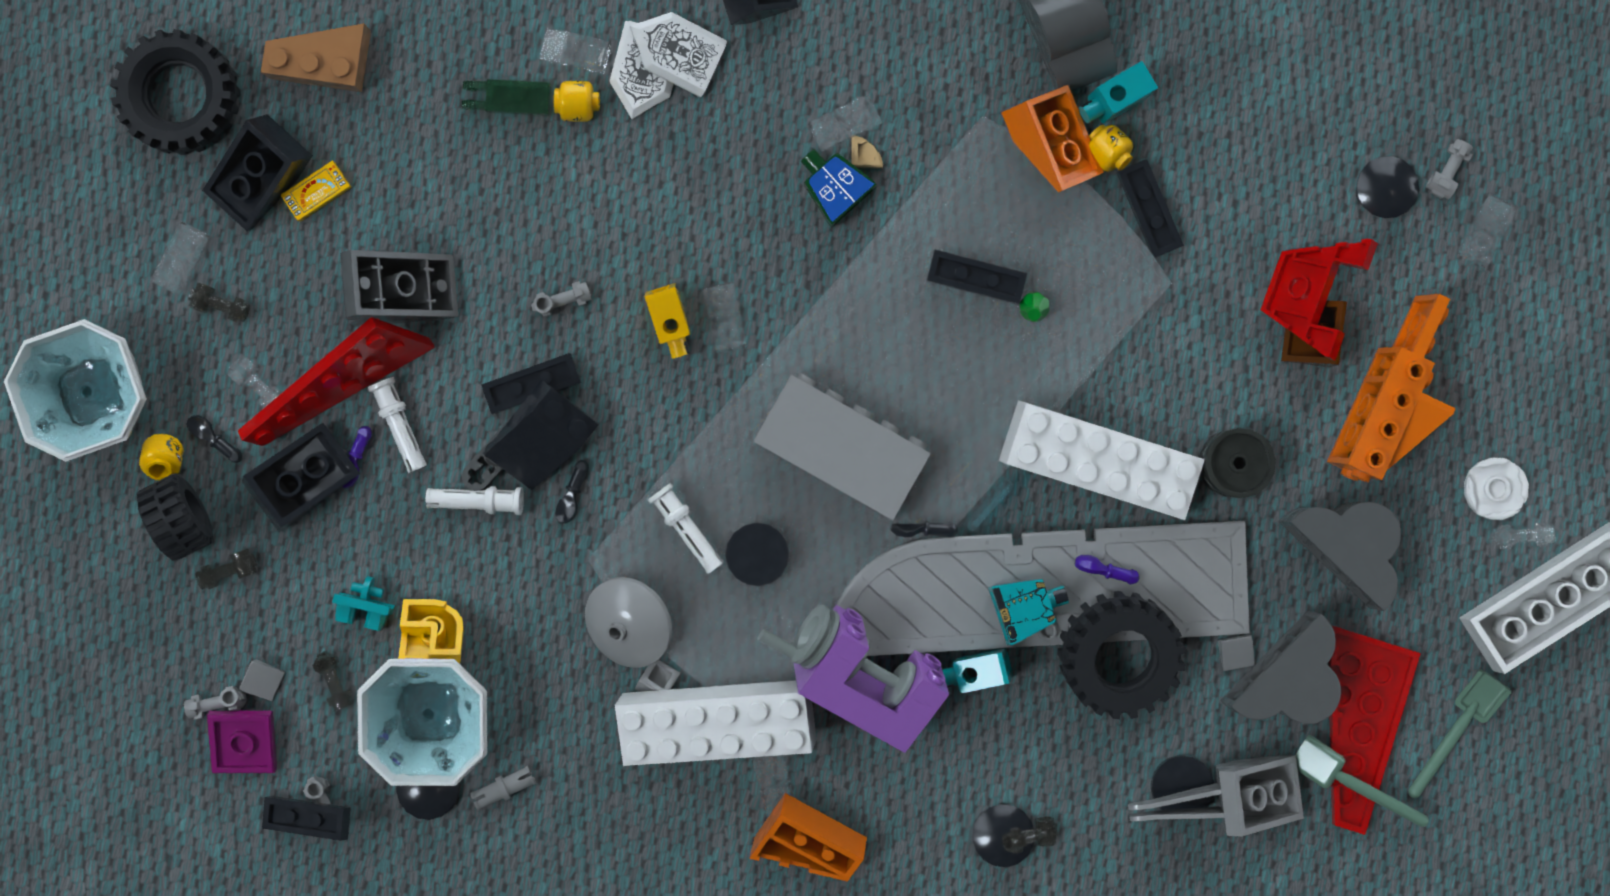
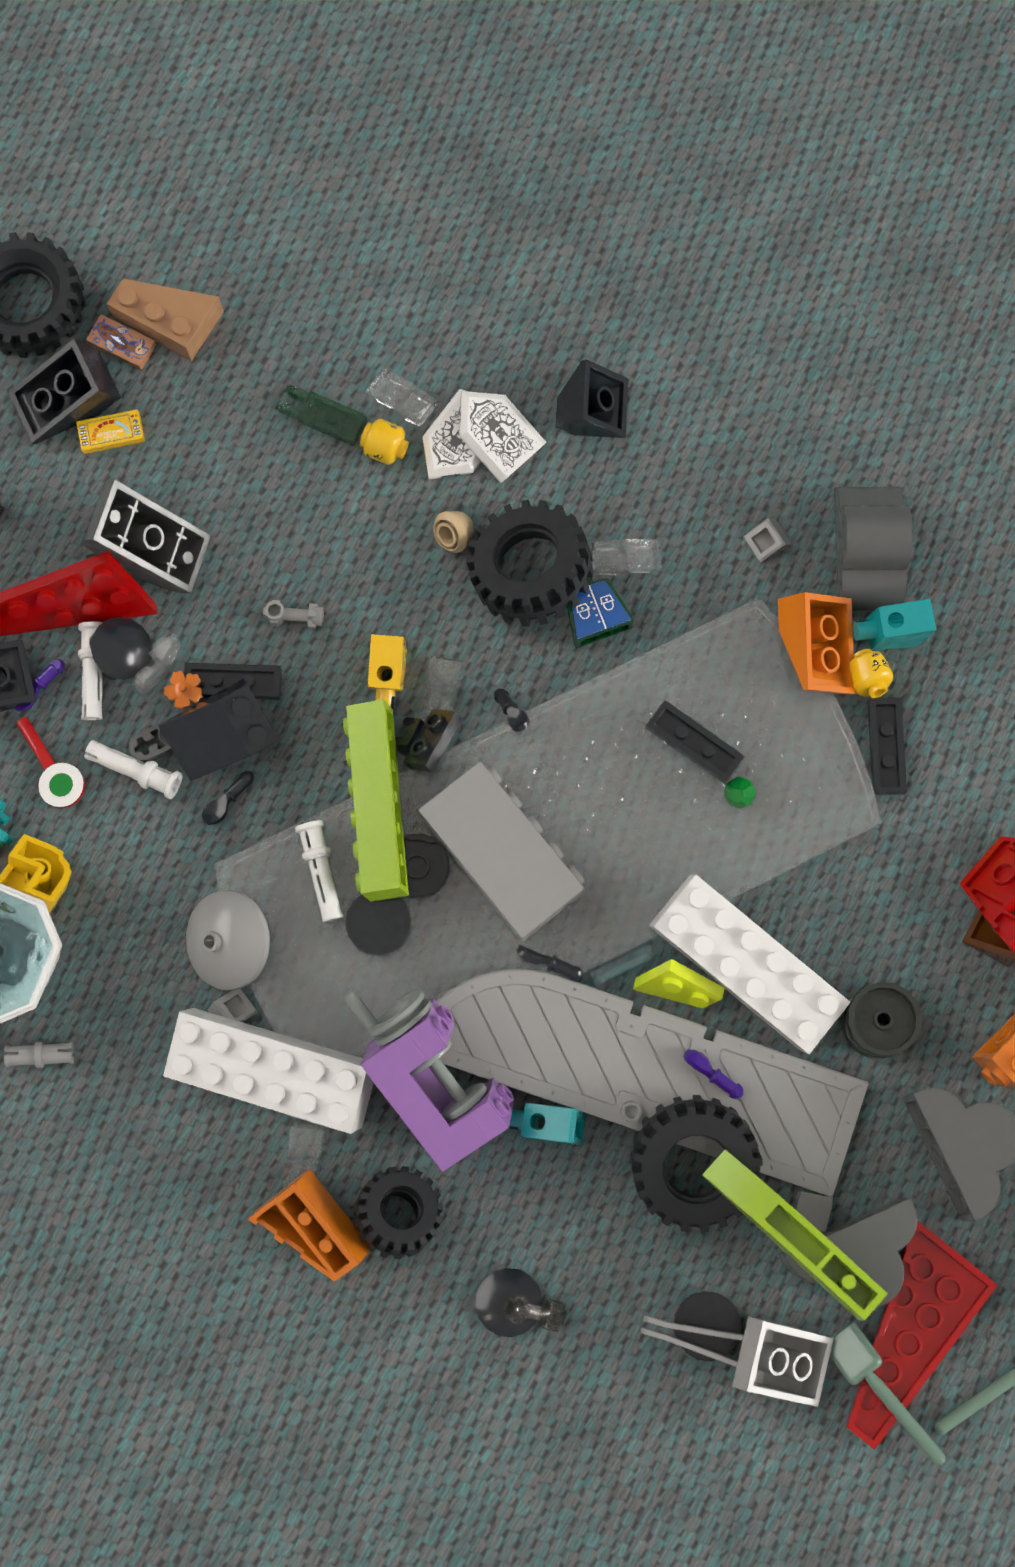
camera: 15 degrees right, 10 degrees down
(287, 100) = (121, 342): none -> tile
(414, 540) = (60, 783): none -> piece
(417, 394) = (120, 648): none -> black dish
(459, 386) = (164, 654): none -> clear slope
(491, 410) = (184, 689): none -> orange plant
(676, 162) = (453, 530): none -> tan cone
(711, 446) = (376, 801): none -> lime brick
(734, 370) = (428, 739): none -> black plate
(770, 489) = (426, 865): none -> black tile
(791, 189) = (546, 593): none -> black tyre
(806, 318) = (517, 718): none -> black piece
(864, 154) = (634, 593): tan tile -> none
(896, 781) = (417, 1193): none -> black tyre
(968, 54) = (767, 539): none -> light grey slope
(1025, 607) = (618, 1076): teal torso -> none
(1046, 501) = (679, 984): none -> neon yellow wing
(1233, 688) = (796, 1236): none -> lime slope

